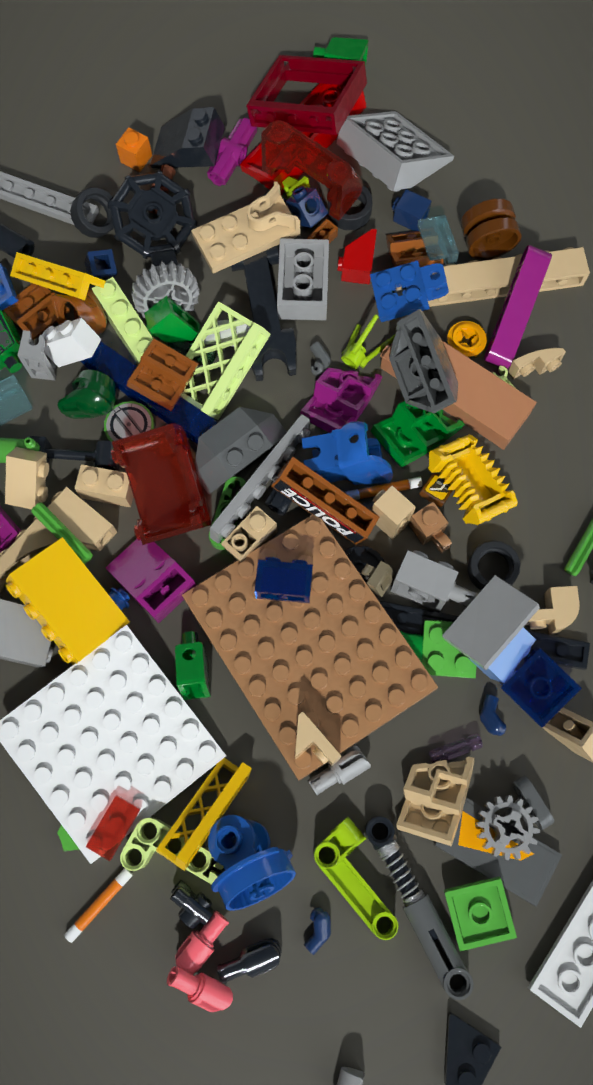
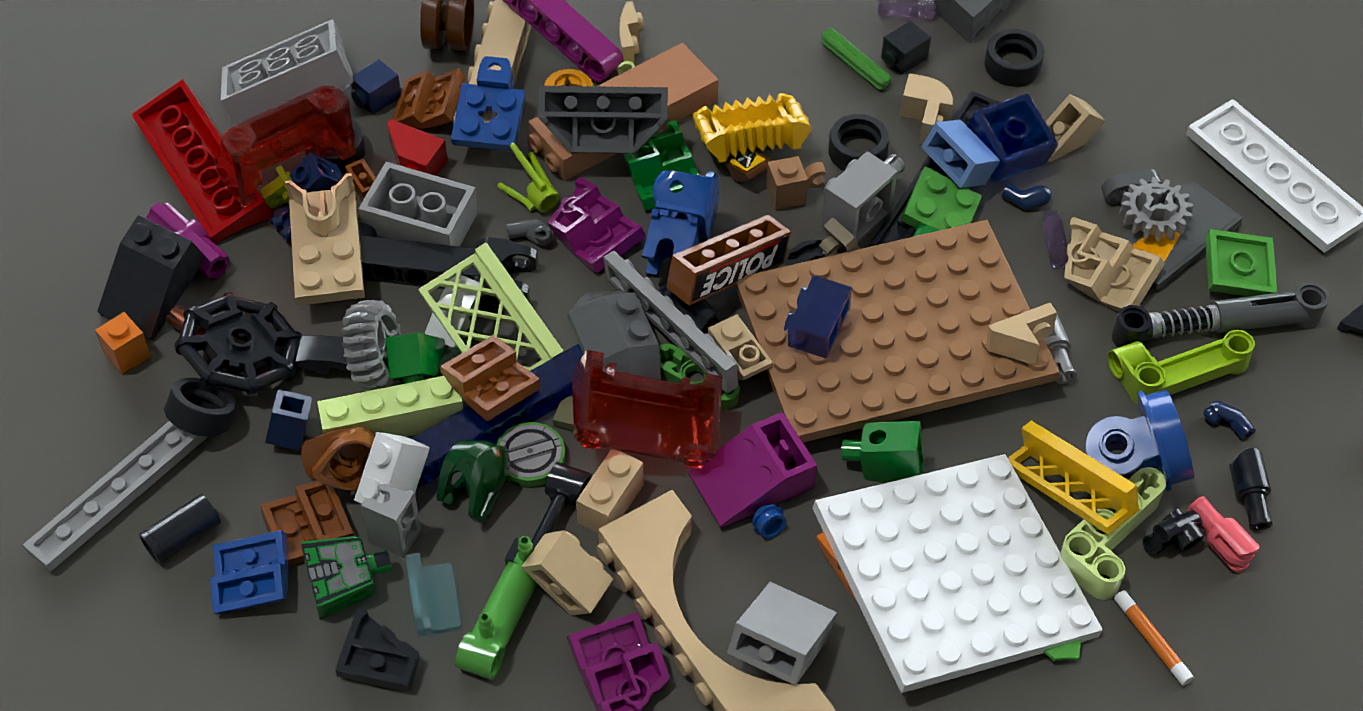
camera: 75 degrees left, 20 degrees down
(53, 276) = (282, 467): yellow fence -> none
(59, 530) = (665, 542): bright green axle -> none
(66, 601) = (765, 554): yellow panel -> none
(113, 827) = (1066, 583): clear red tile -> none
(201, 989) = (1277, 536): coral arm -> none
(308, 118) = (189, 150): dark red window -> none
(344, 49) = (124, 87): green torso -> none
(374, 490) = (725, 206): orange bar -> none
(393, 511) = (765, 195): tan brick -> none
(438, 239) = (433, 66): clear light blue panel -> none
(490, 622) = (932, 144): light grey tile -> none

